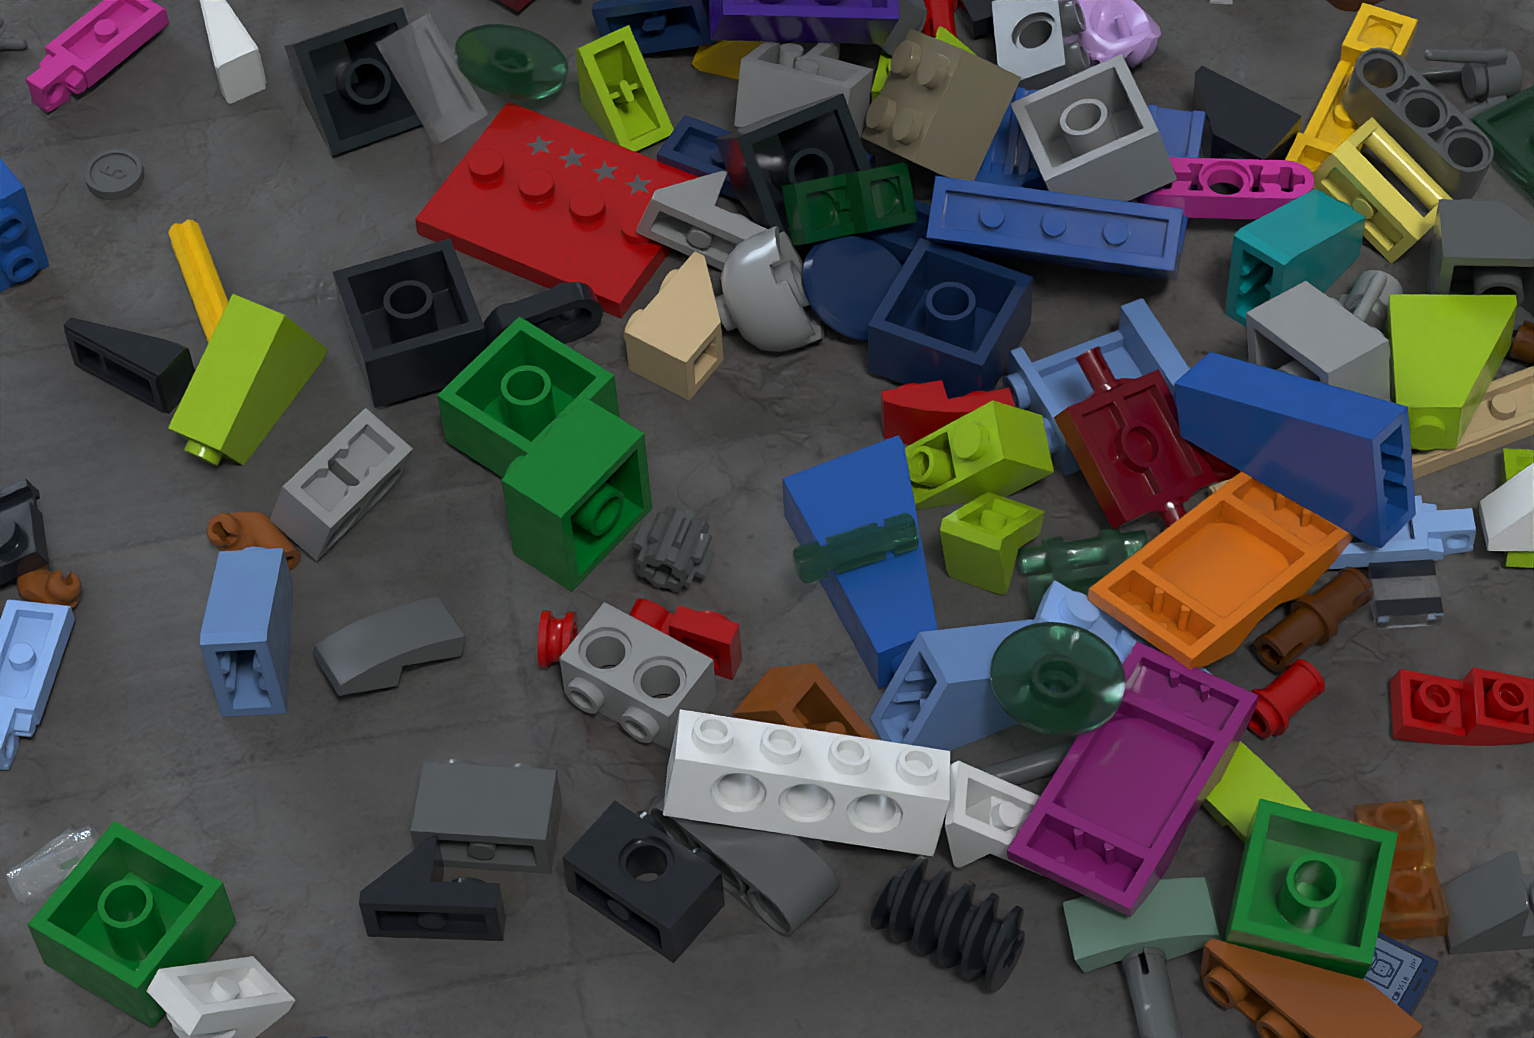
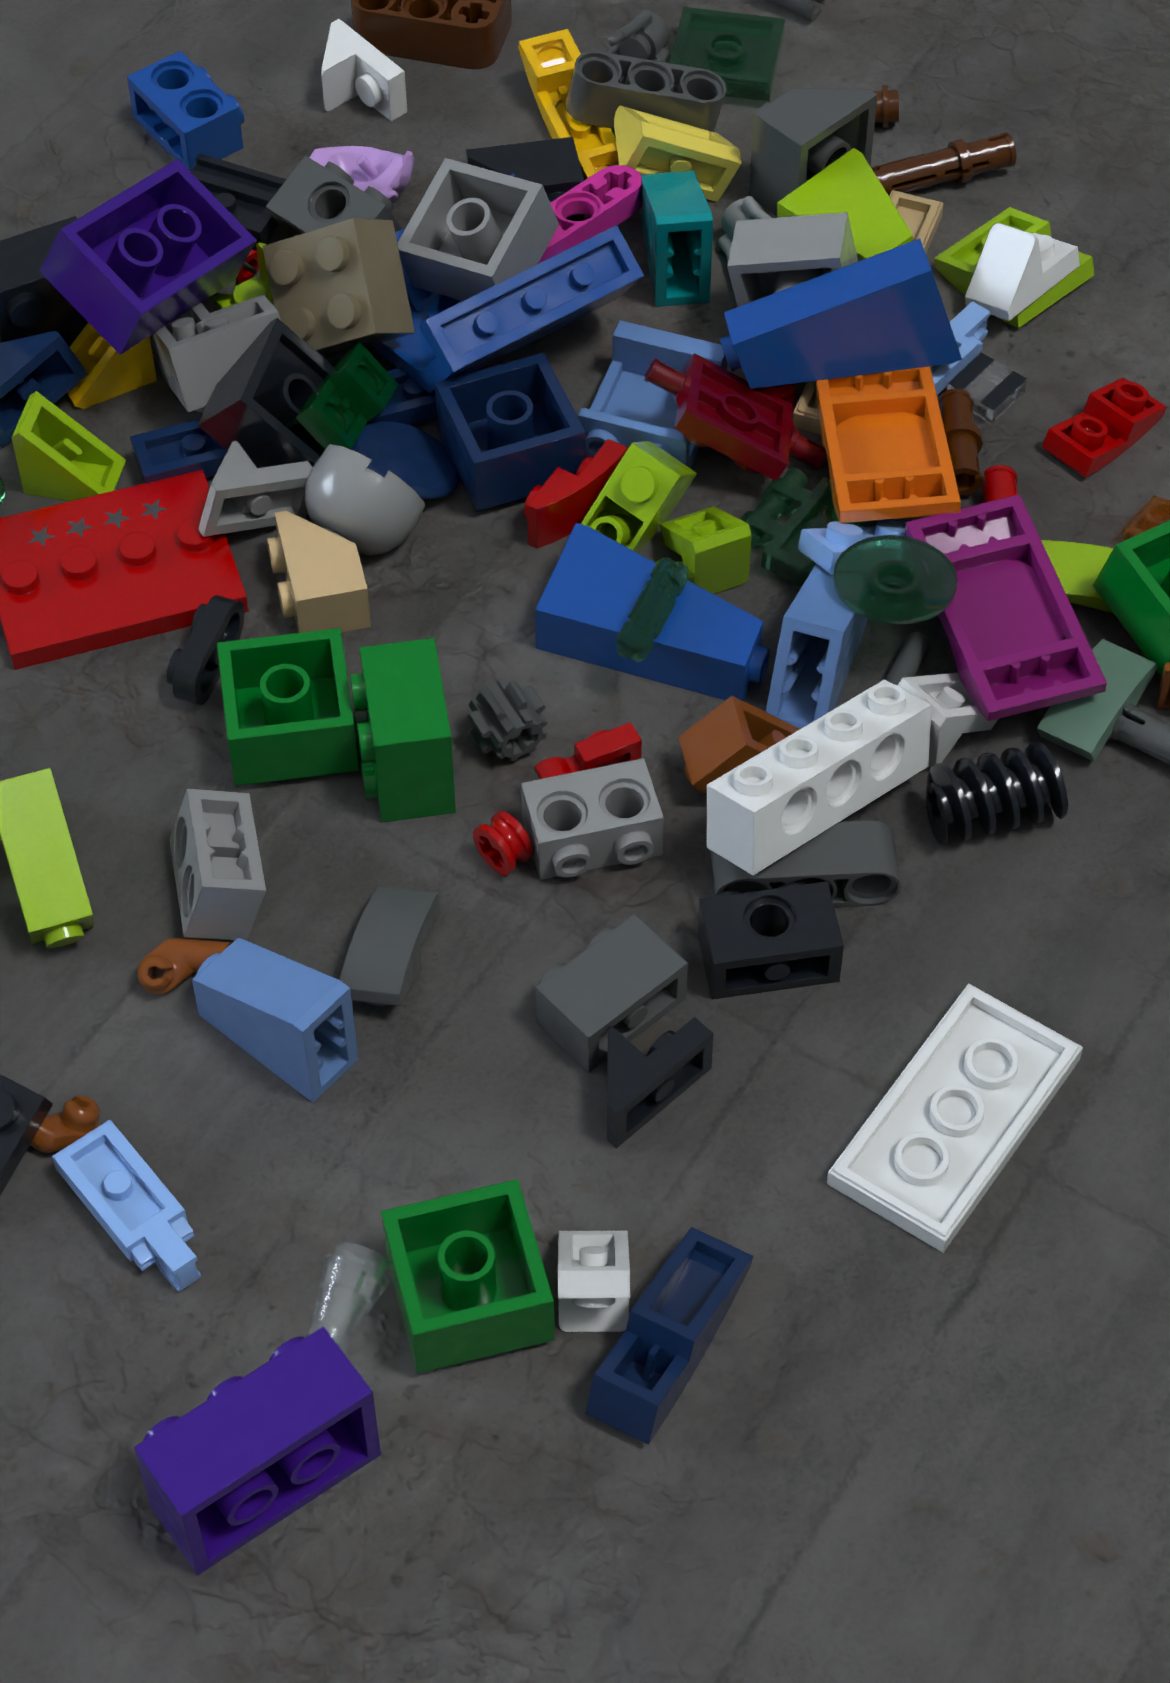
camera: 50 degrees left, 0 degrees up
(410, 321) = (119, 717): black brick -> none

